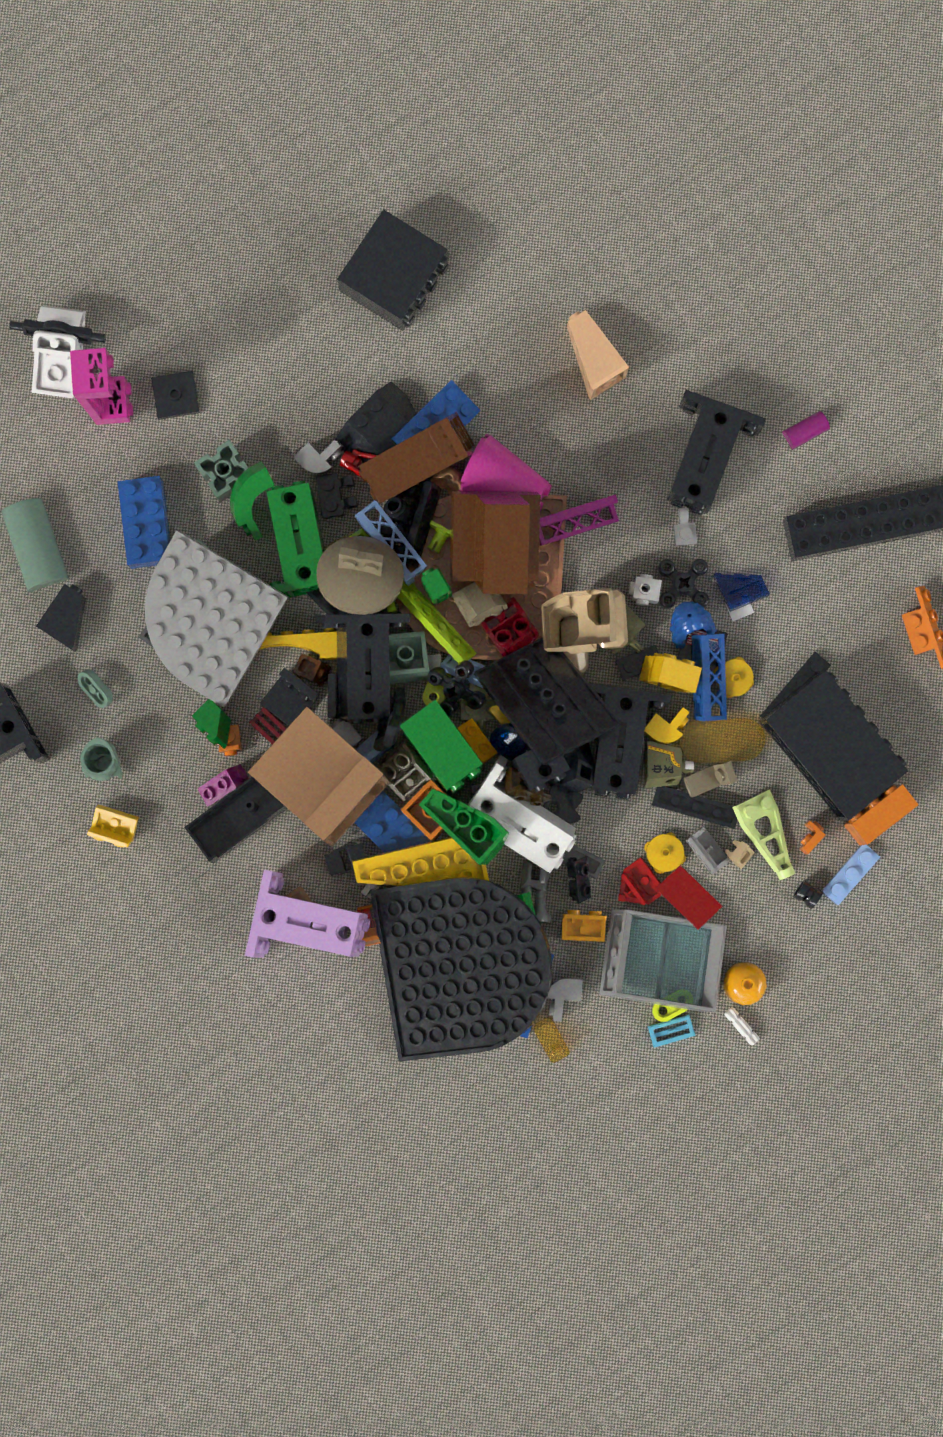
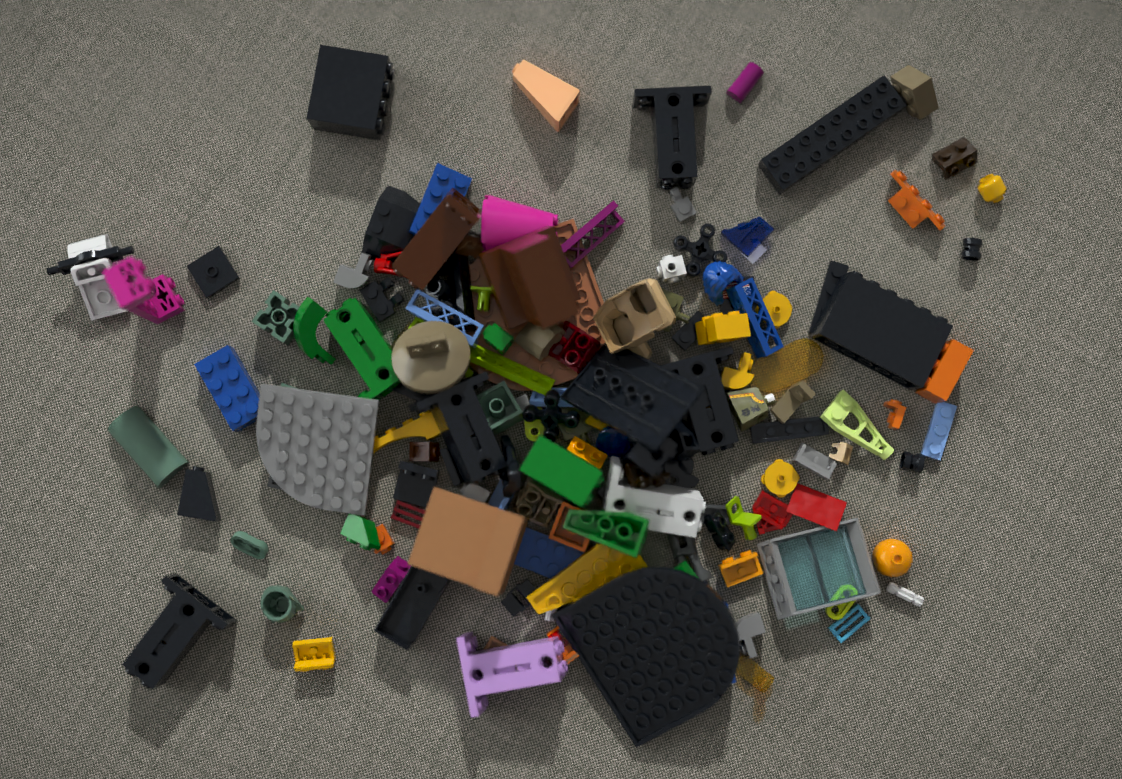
camera: 25 degrees left, 0 degrees up
(607, 876) = (743, 519): none -> lime bracket

